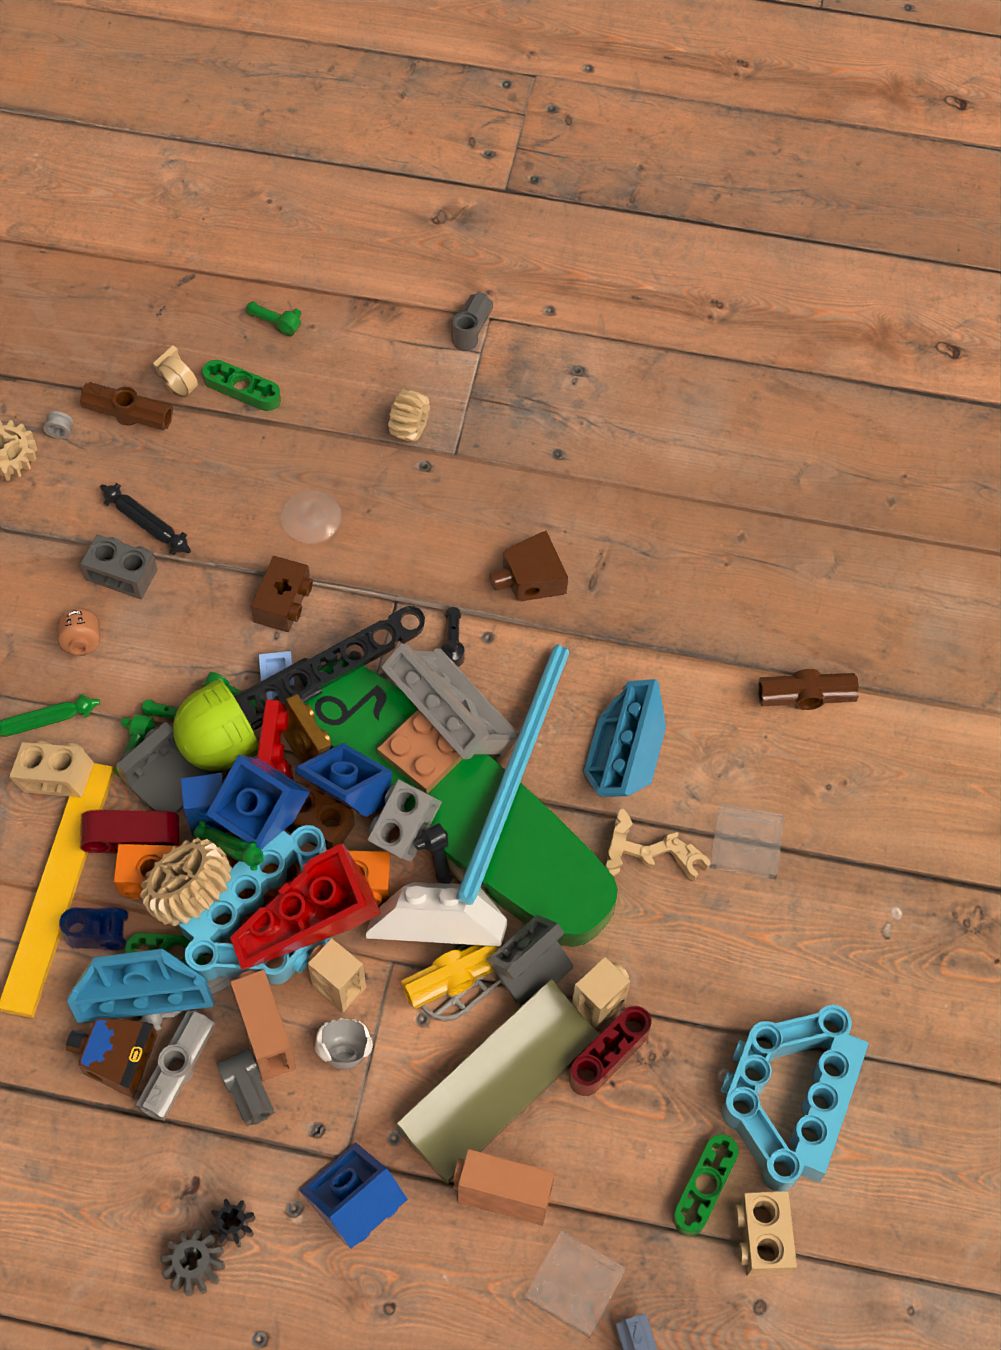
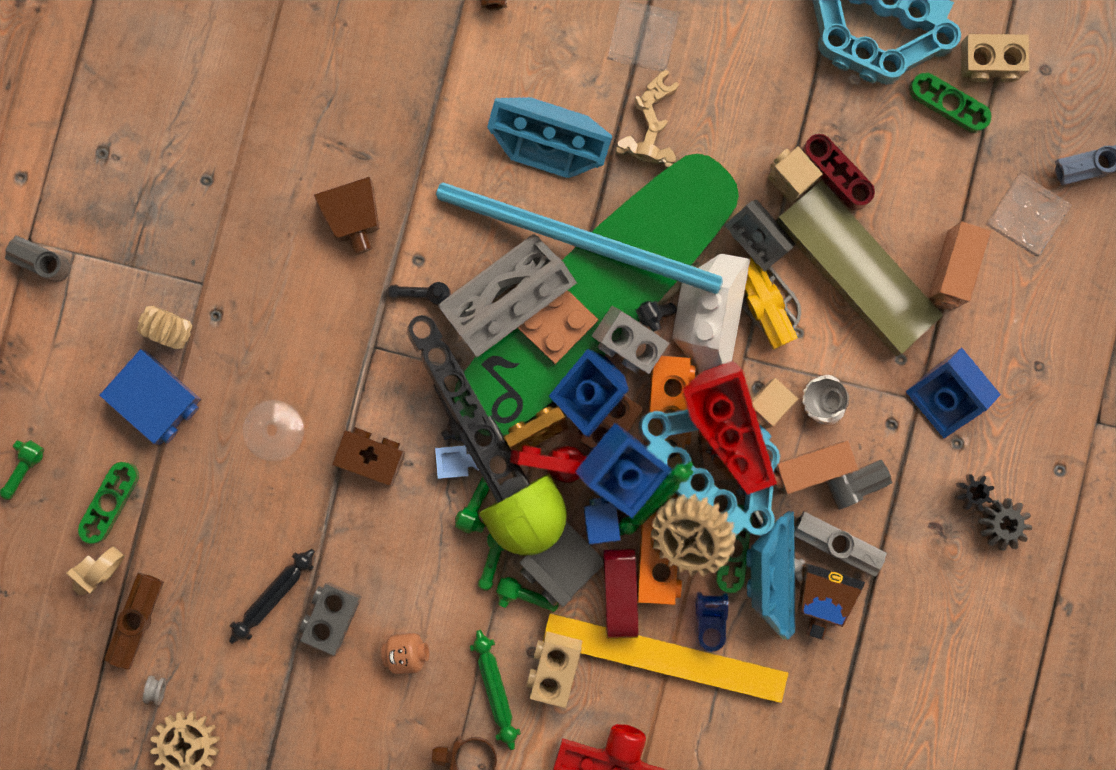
camera: 90 degrees left, 25 degrees up
(341, 411) = (151, 398): none -> blue brick

